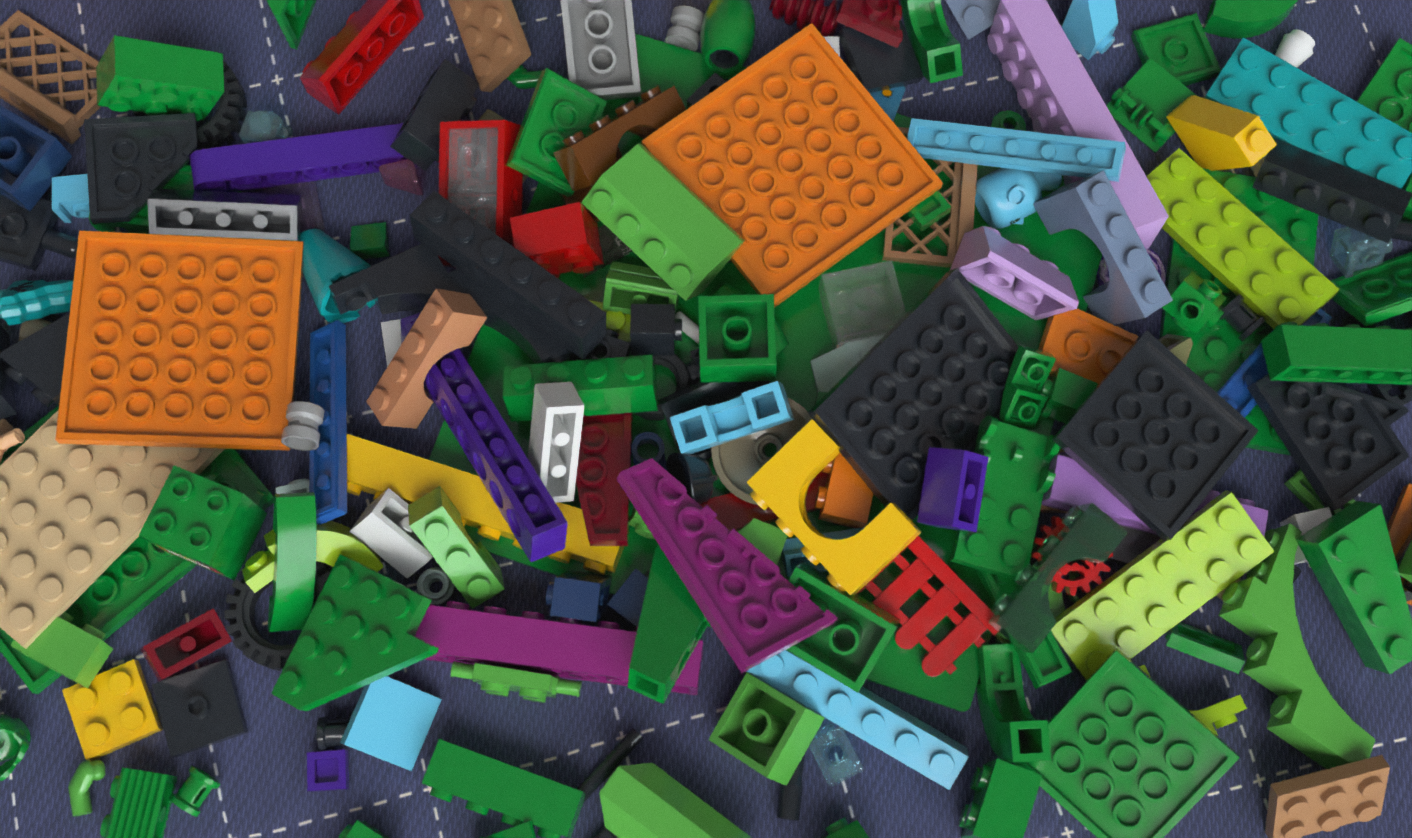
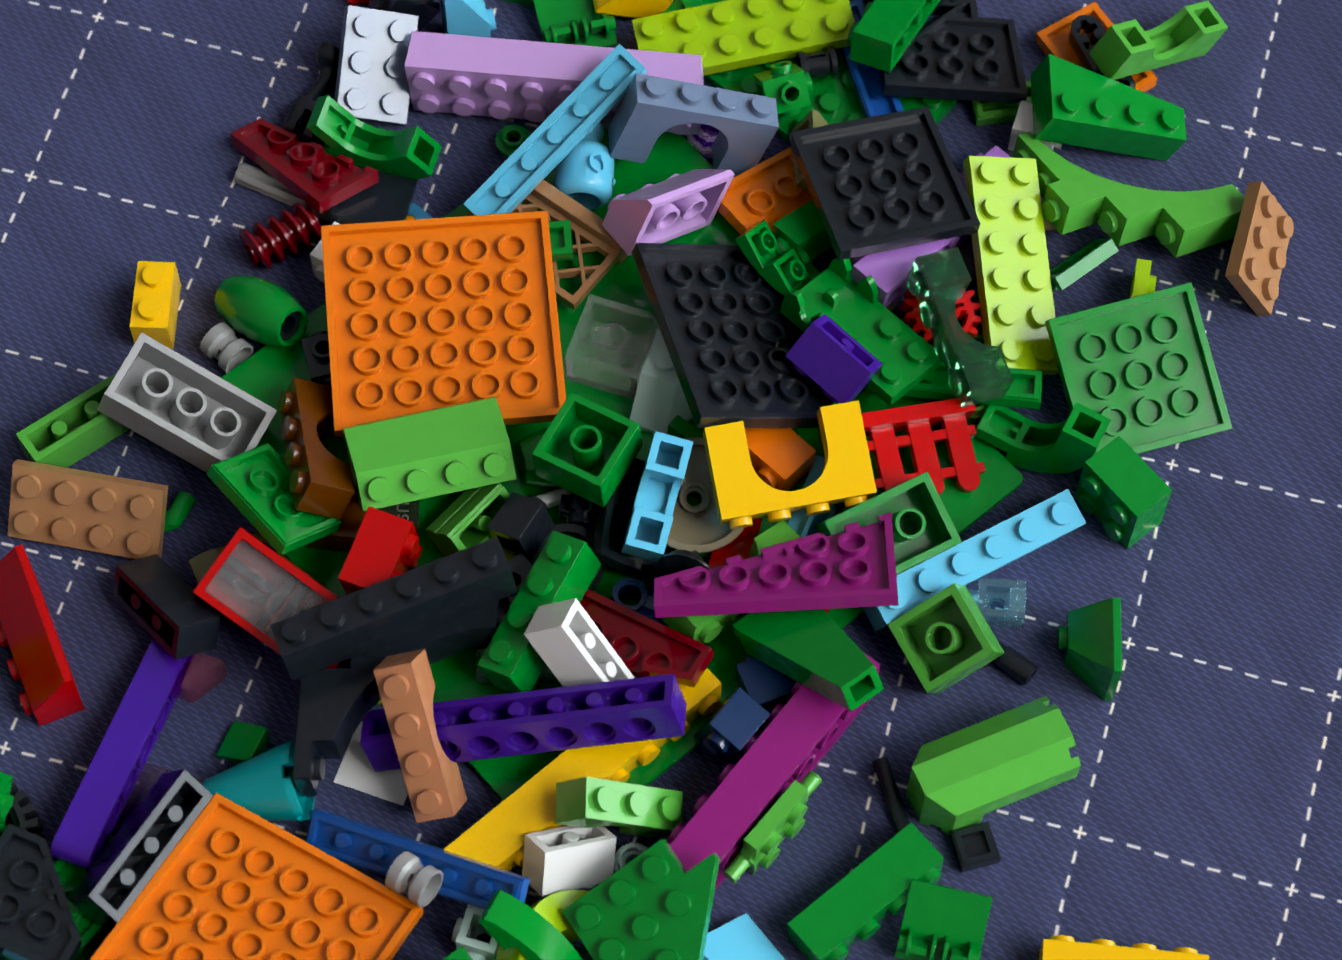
camera: 60 degrees left, 10 degrees down
(263, 127) = (60, 776): clear light blue brick -> none

